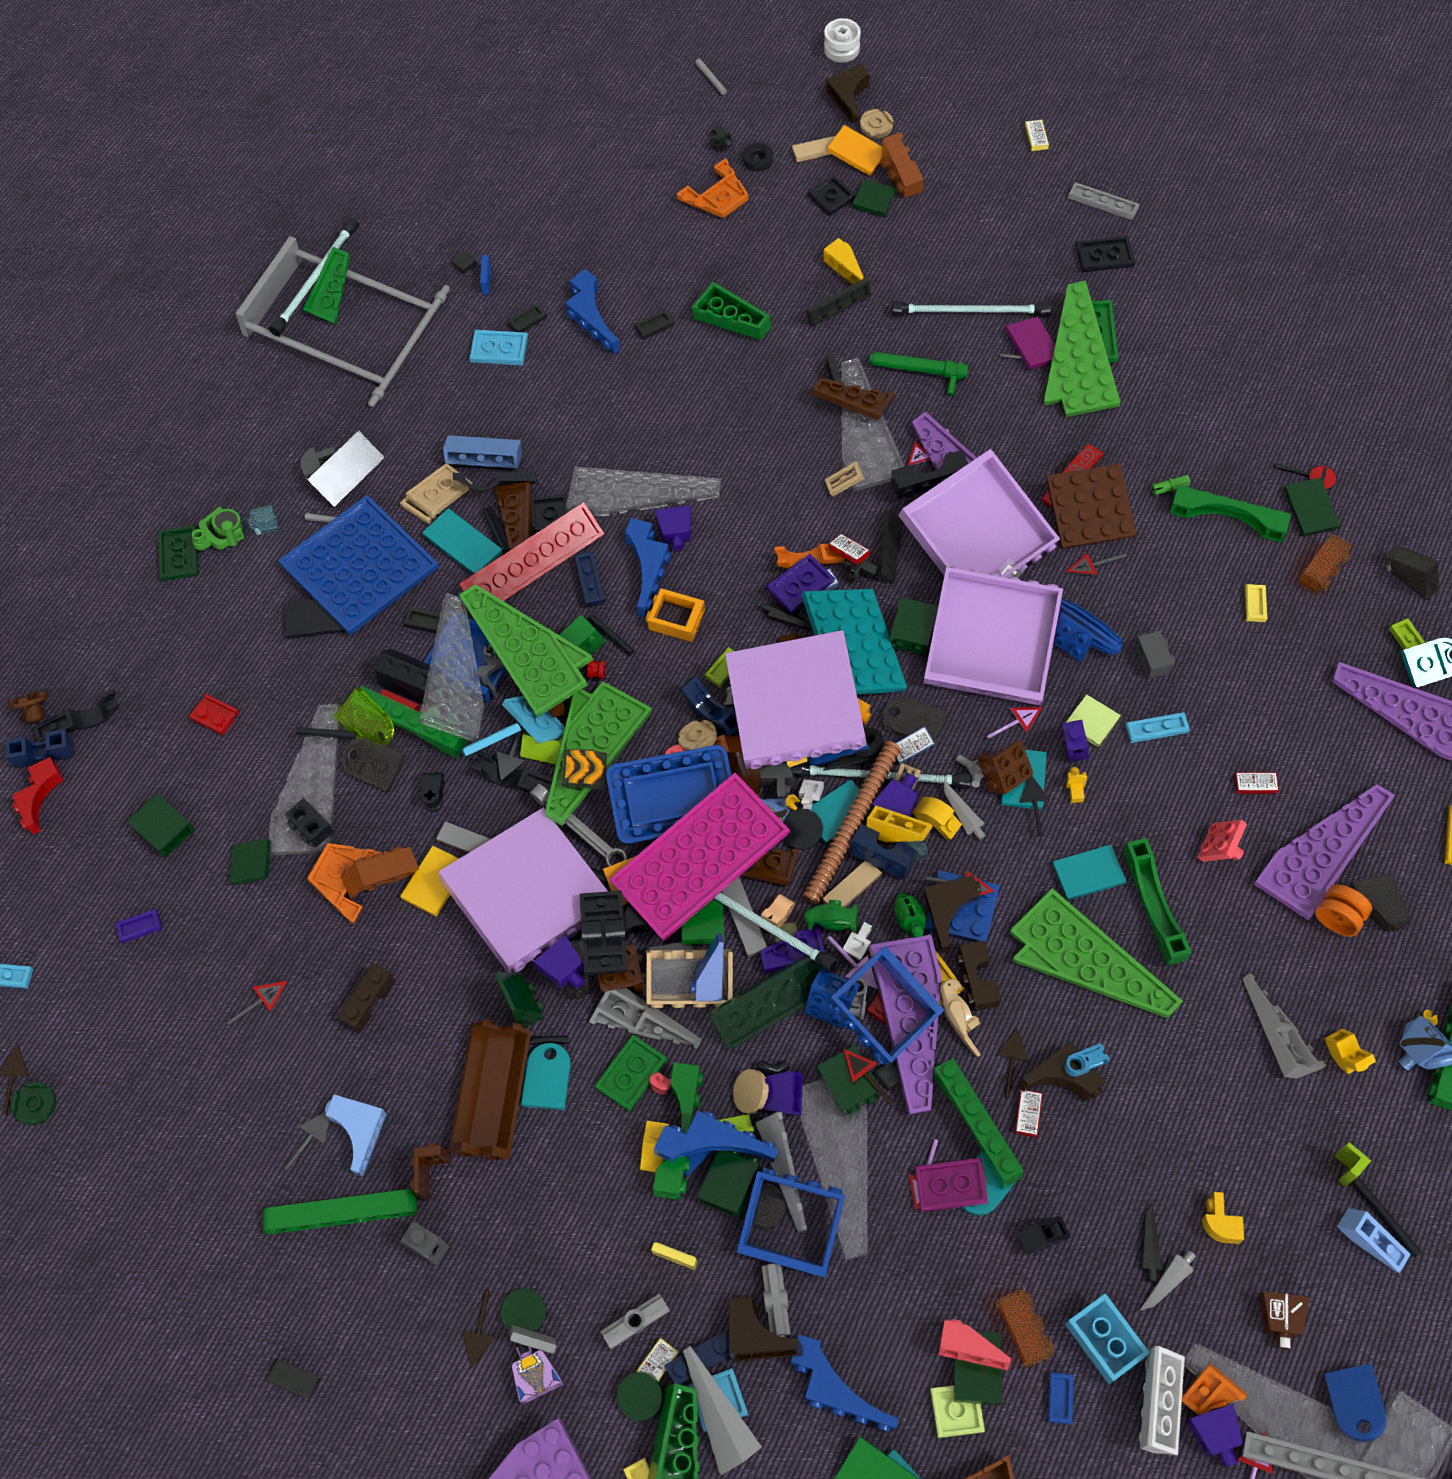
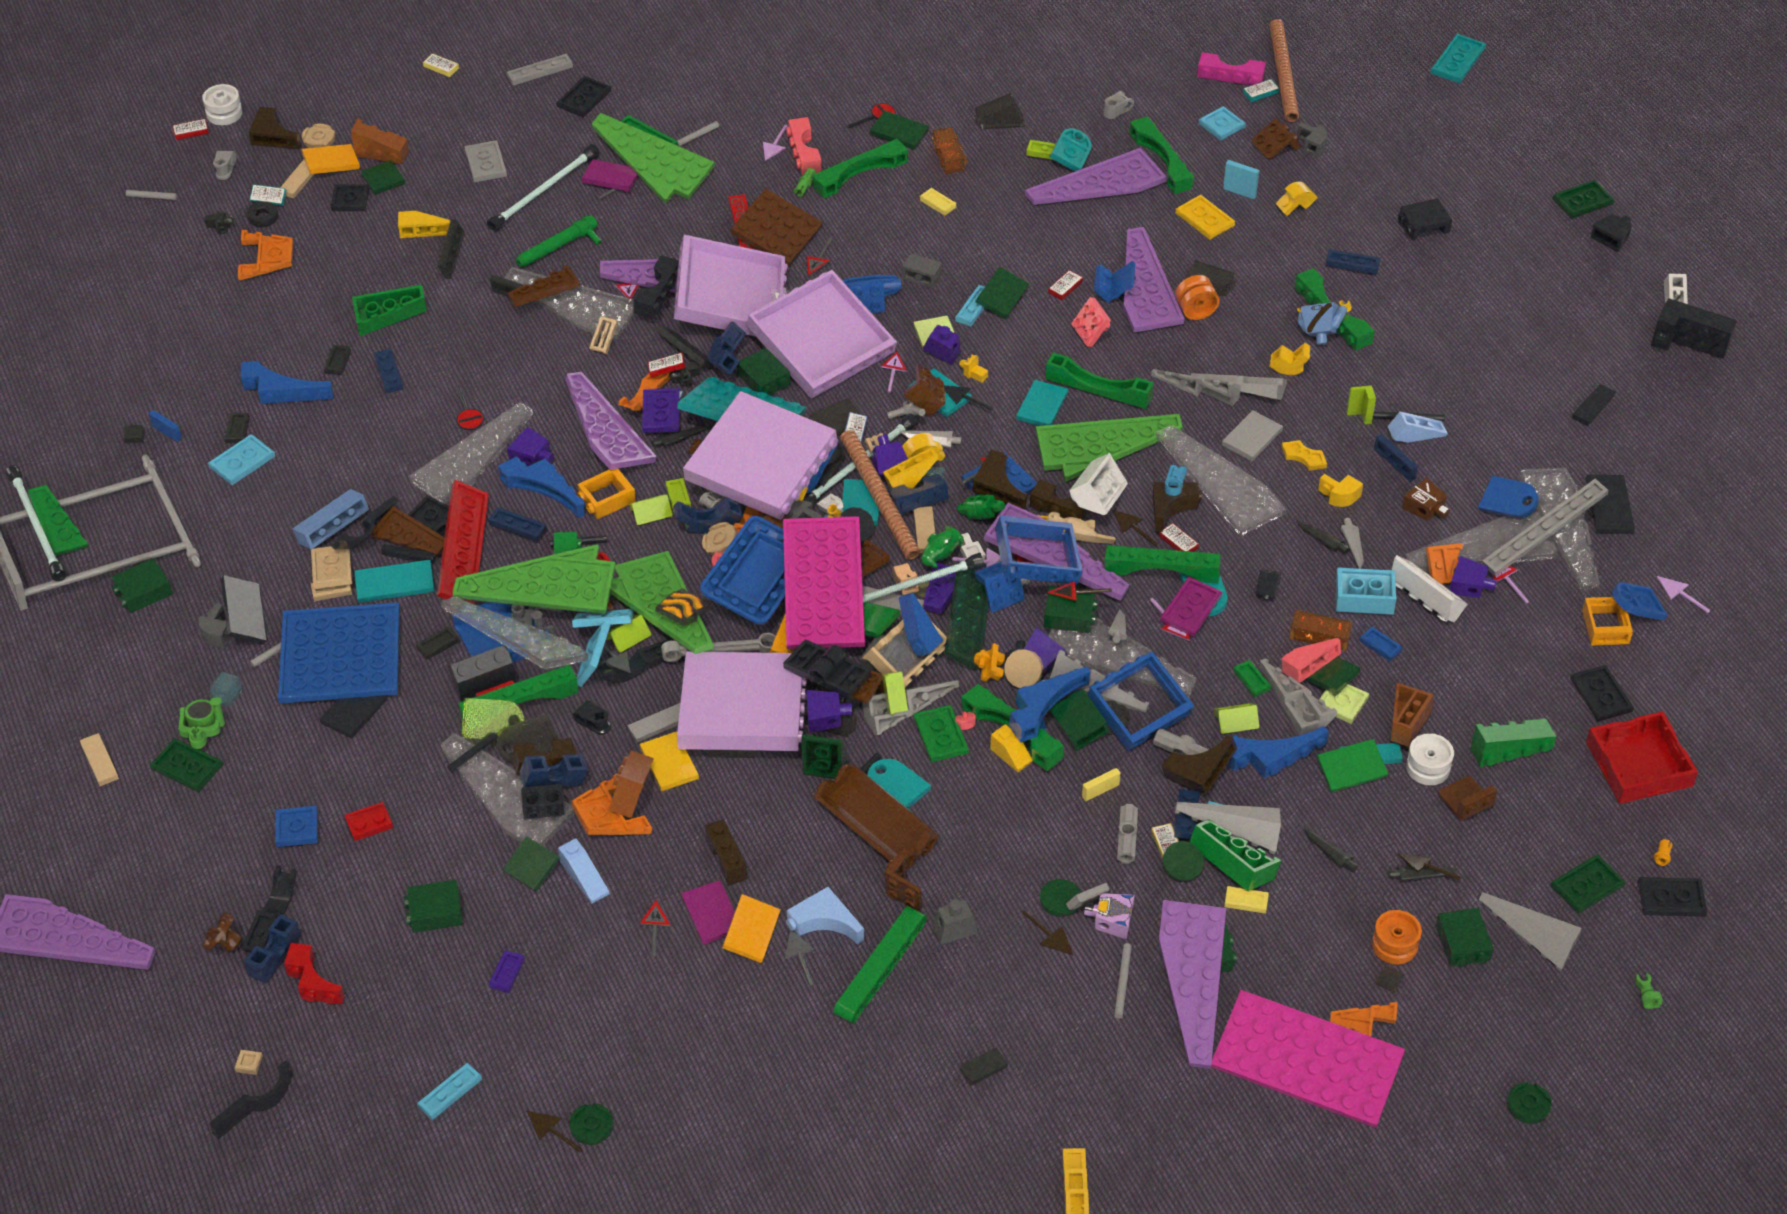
camera: 55 degrees left, 15 degrees down
(141, 495) = (99, 759): none -> tan tile
(170, 670) = (296, 826): none -> blue plate
(271, 904) = (582, 870): none -> light blue slope
(302, 1033) = (709, 911): none -> magenta tile
(303, 1078) = (751, 928): none -> light orange tile
(319, 387) = (141, 586): none -> dark green brick
(352, 813) = (568, 771): none -> dark blue arch
(371, 799) = (558, 749): none -> dark brown arch
(470, 1436) = (1122, 984): none -> light grey bar
(628, 1004) = (894, 692): none -> lime panel
(673, 366) = (388, 370): none -> dark blue plate
(676, 458) = (469, 418): none -> piece
(689, 659) = (651, 509): none -> lime panel
(736, 1053) = (989, 661): none -> light orange hips
(737, 570) = (605, 428): none -> medium lavender wing
(779, 144) = (270, 194): none -> tile
(784, 92) = (224, 164): none -> light grey piece
(801, 43) = (190, 129): none -> tile
(853, 1322) = (1237, 718): none -> lime panel
(863, 1140) = (1118, 627): none -> light grey bar
(901, 579) = (723, 348): none -> dark blue arch
(911, 1386) = (1300, 705): none -> light grey wedge
(914, 1303) = (1252, 678): none -> green tile
(961, 248) = (485, 161): none -> light grey tile
(1019, 998) = (1099, 485): none -> white slope
(1132, 1121) = (1236, 494): none -> clear wing
(1146, 364) = (698, 133): none -> light grey bar
(1188, 430) = (772, 149): none -> lavender piece
(1191, 738) = (1002, 292): none -> dark green tile
(1221, 1086) = (1252, 435): none -> light grey tile
(1224, 437) = (800, 133): none -> coral arch
(1237, 989) = (1220, 390): none -> light grey wedge
(1242, 1161) = (1310, 458): none -> yellow tile
(1294, 822) = (1110, 285): none -> blue bracket
(1315, 1245) = (1395, 457): none -> dark blue plate

